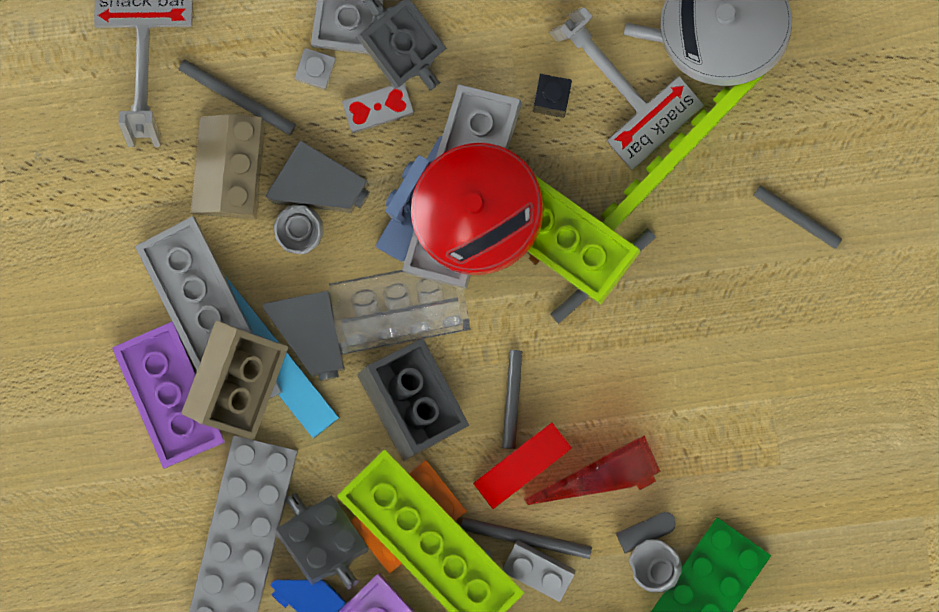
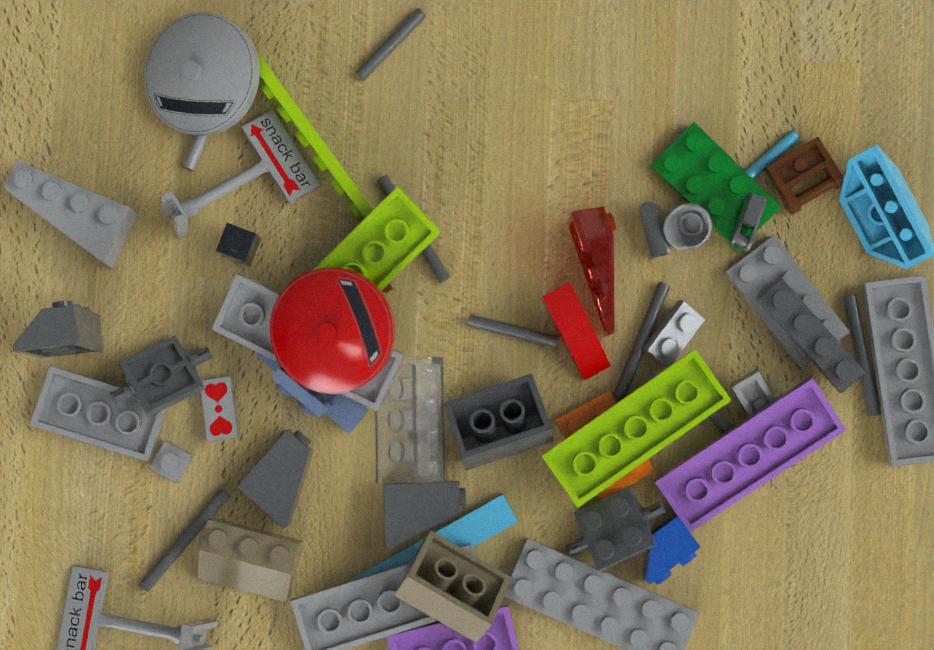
camera: 80 degrees left, 0 degrees up
(298, 229) = (320, 502): light grey hair -> none

